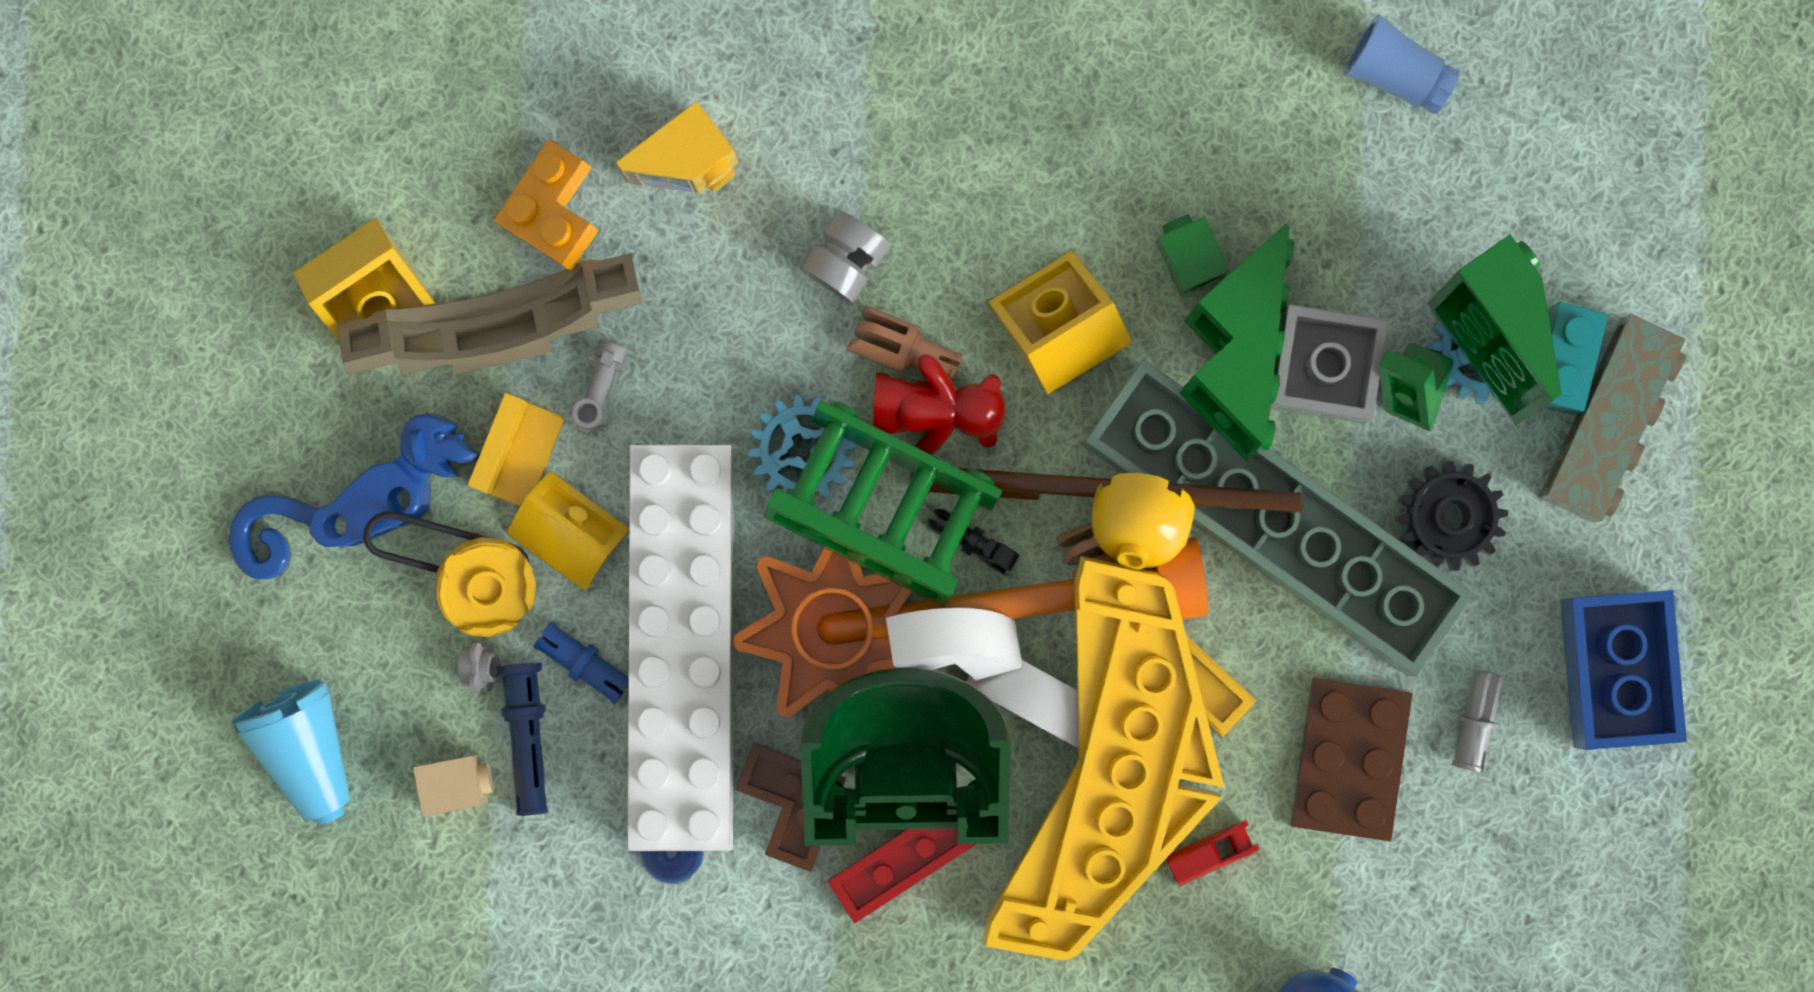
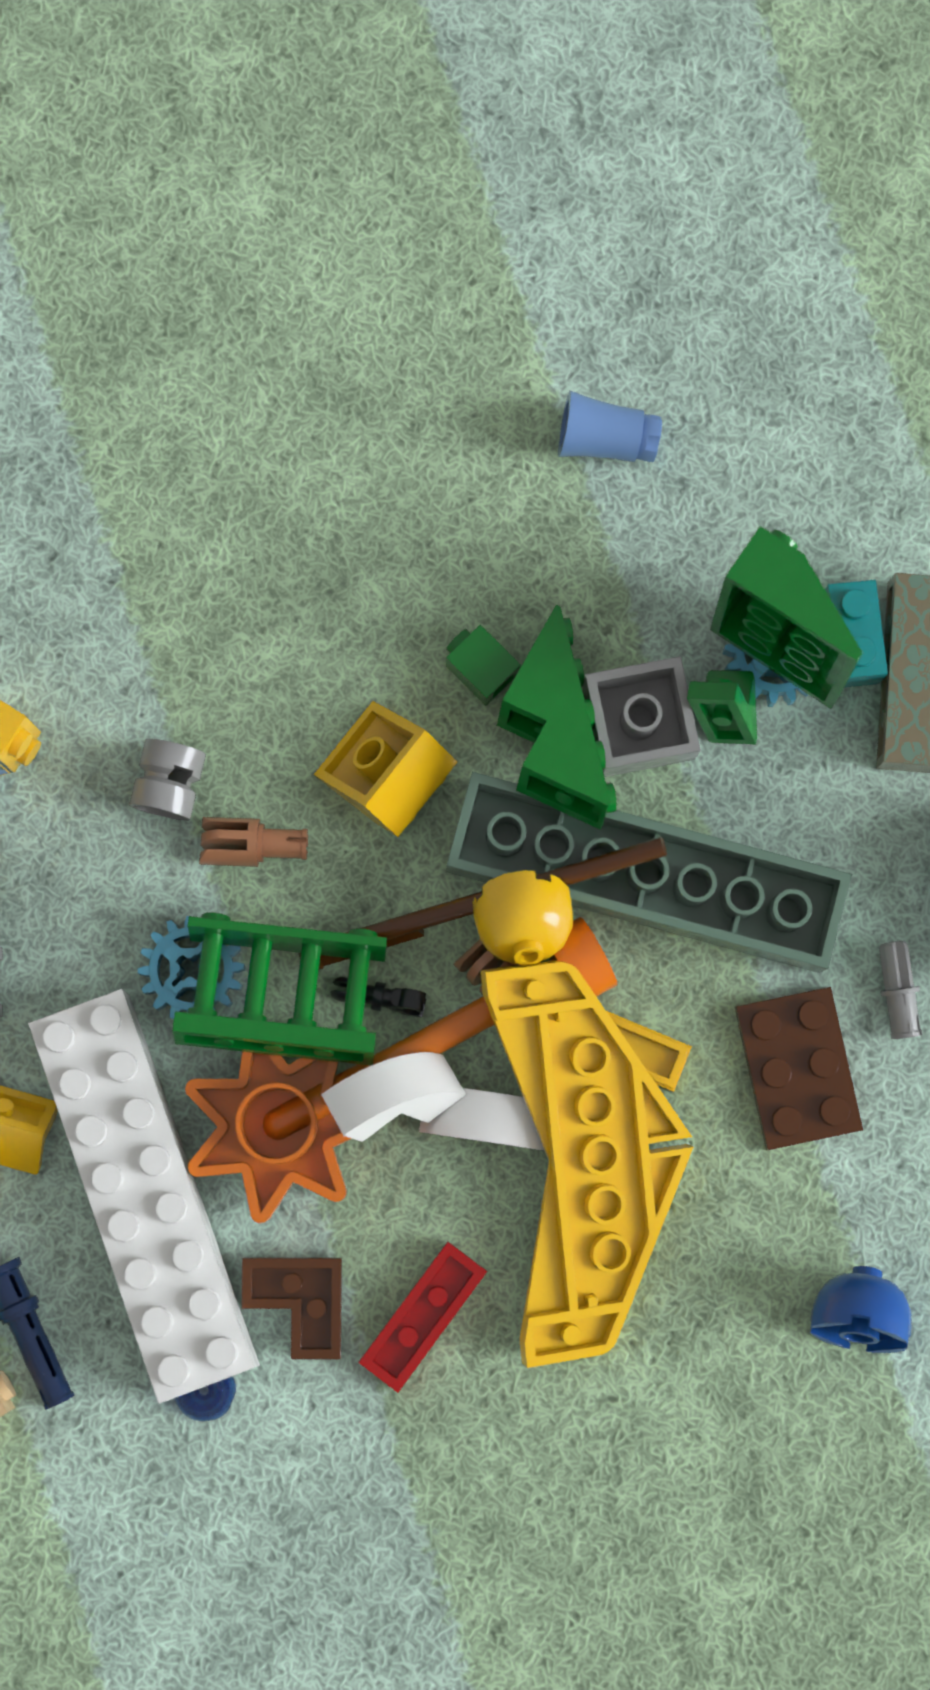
camera: 25 degrees left, 5 degrees down
(582, 662) = (57, 1242): blue pin -> none
(905, 740) = (382, 1202): dark green piece -> none
(938, 406) = (302, 884): red piece -> none
(1203, 856) = (697, 1208): red bar -> none
(1478, 511) = (818, 791): black gear -> none

